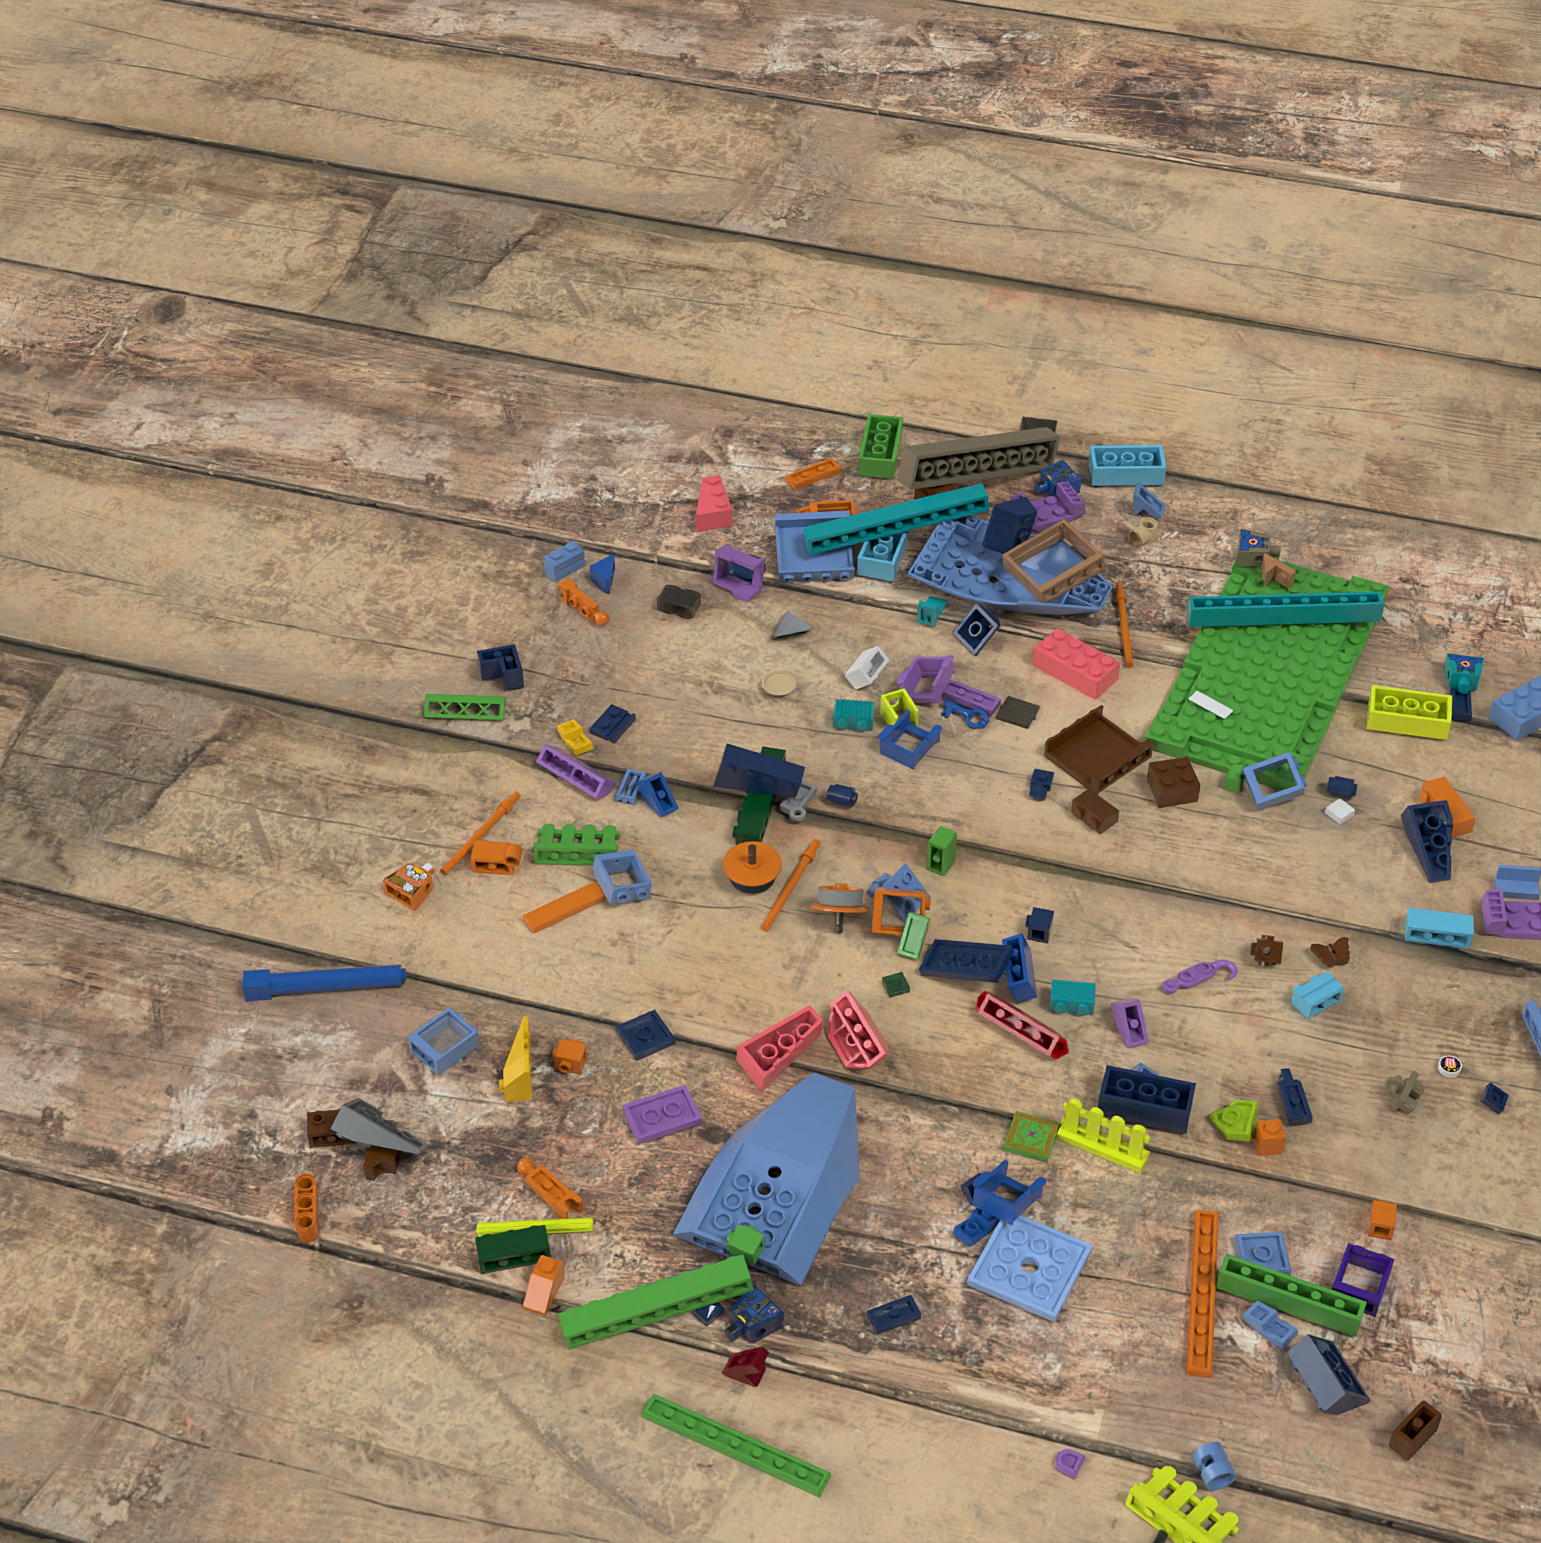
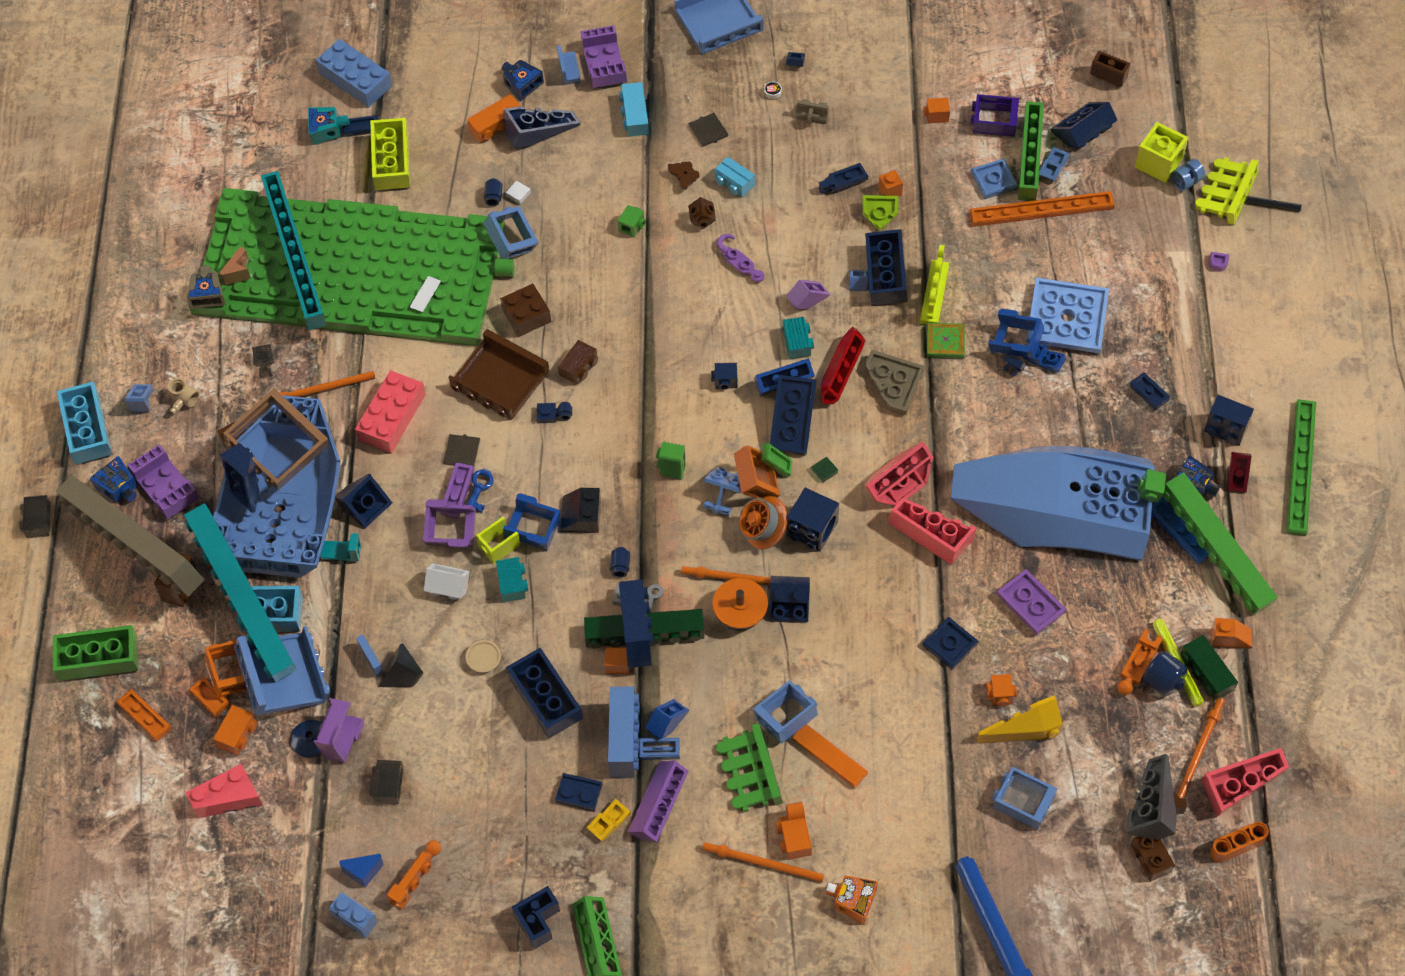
camera: 105 degrees left, 15 degrees up
(370, 1229) = (1239, 780): none -> coral wedge
(455, 1236) = (1213, 718): none -> orange bar
(520, 1198) = (1165, 674): none -> dark blue head
(652, 752) = (623, 732): none -> medium blue brick
(719, 711) = (544, 693): none -> dark blue brick
(749, 912) = (789, 598): none -> dark blue slope
(763, 514) = (235, 730): none -> orange brick
(811, 608) = (369, 655): none -> medium blue tile
(817, 1371) = (1228, 420): none -> dark blue brick
(829, 945) = (812, 519): none -> dark blue brick
(910, 783) = (581, 511): none -> black slope
(989, 1072) = (894, 379): none -> dark tan plate
(1169, 590) = (263, 357): none -> clear smoke plate
(1251, 1434) = (1161, 152): none -> neon yellow brick
(1274, 891) = (631, 221): none -> bright green brick
(1400, 994) = (708, 129): none -> clear smoke piece
(1502, 839) = (521, 78): none -> dark blue torso

